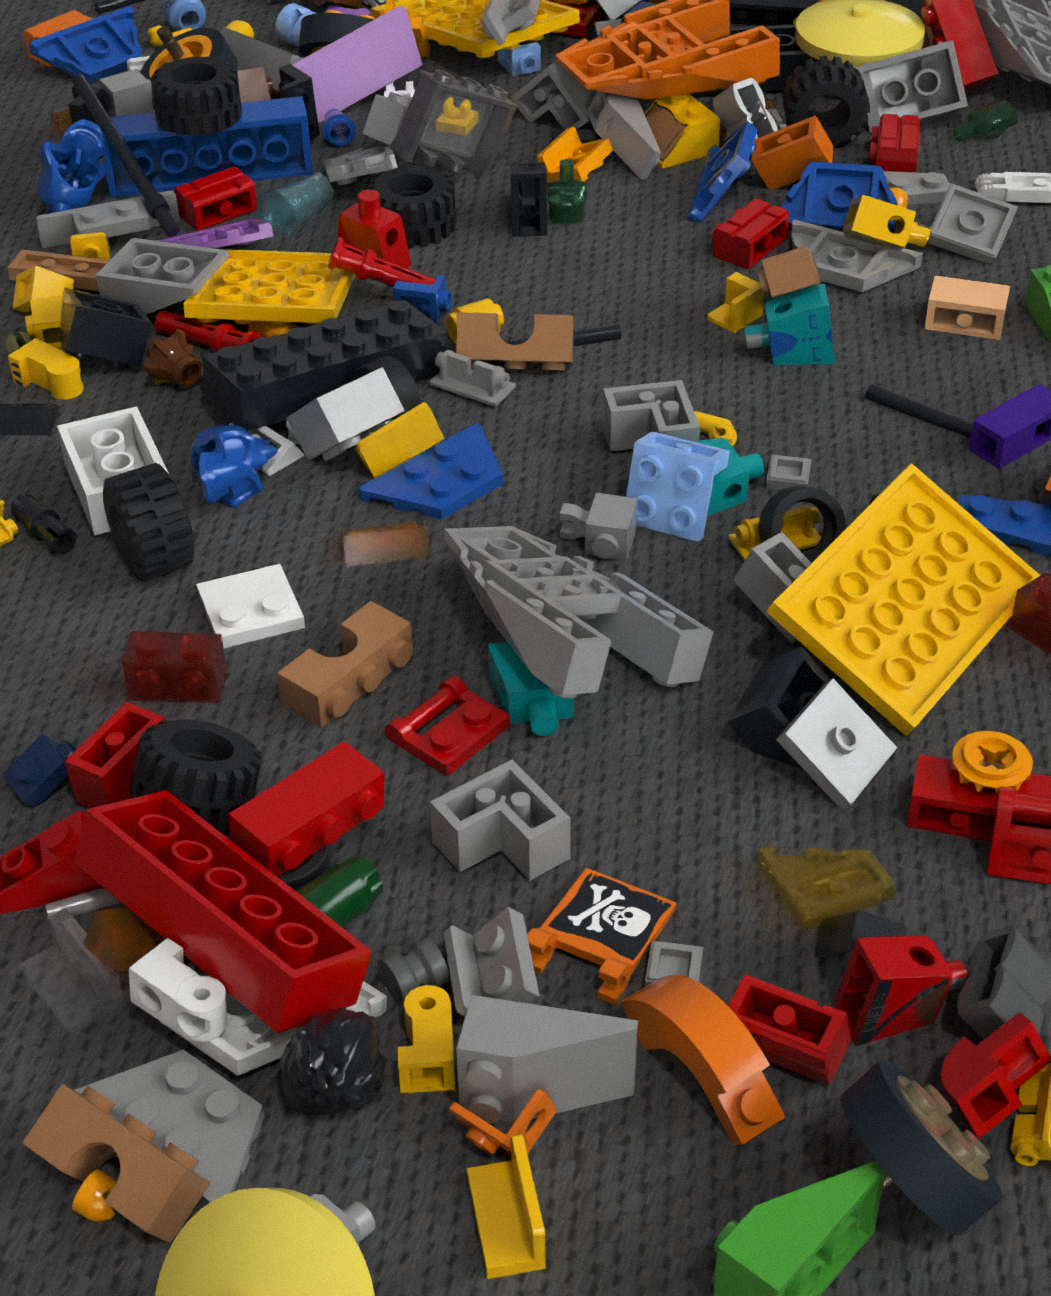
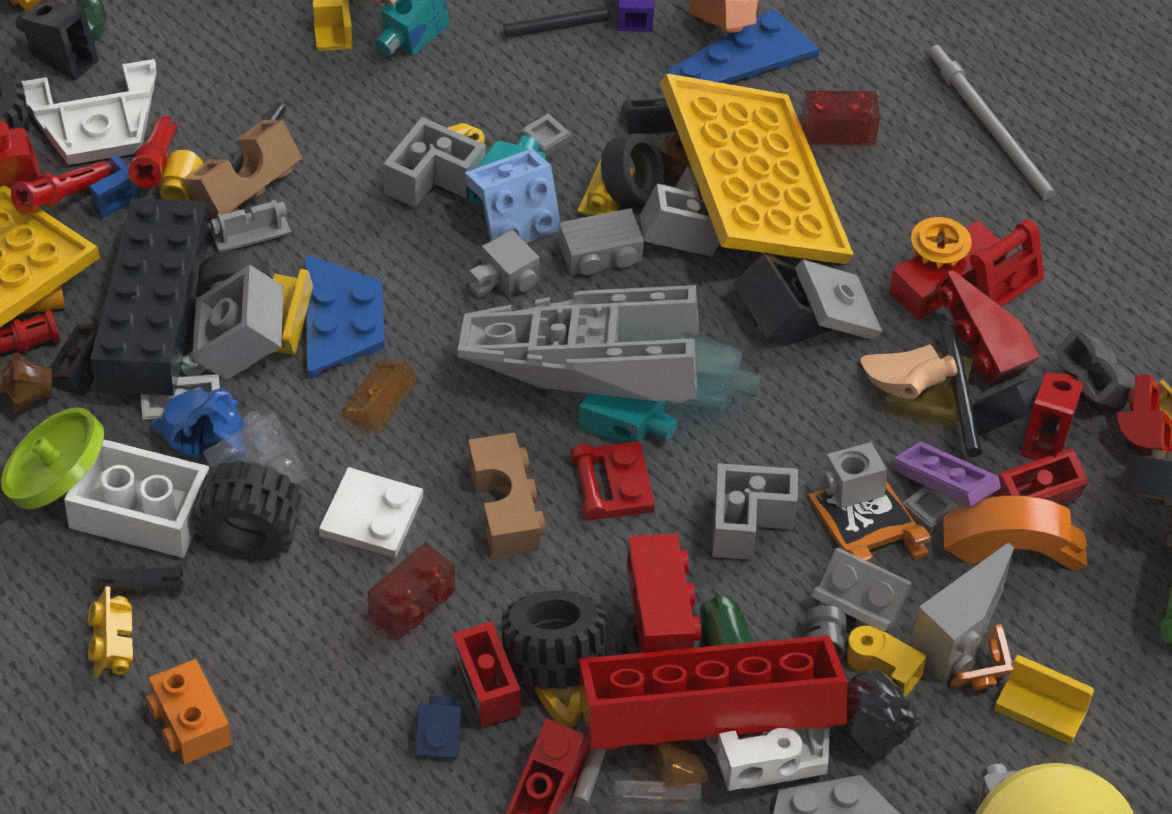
camera: 55 degrees left, 10 degrees up
(103, 403) = (52, 458): none -> lime piece
(214, 499) = (259, 442): none -> clear hinge
(462, 289) = (152, 156): none -> red pin
(486, 266) = (95, 125): none -> white wing
(632, 877) = (855, 475): none -> light grey brick
(633, 707) = (719, 374): none -> clear light blue torso
(701, 562) = (600, 242): none -> light grey brick
(710, 943) = (946, 474): none -> medium lavender tile
(812, 842) = (908, 372): none -> light nougat arm
(835, 896) = (962, 393): none -> black bar
(938, 879) = (991, 333): none -> red slope

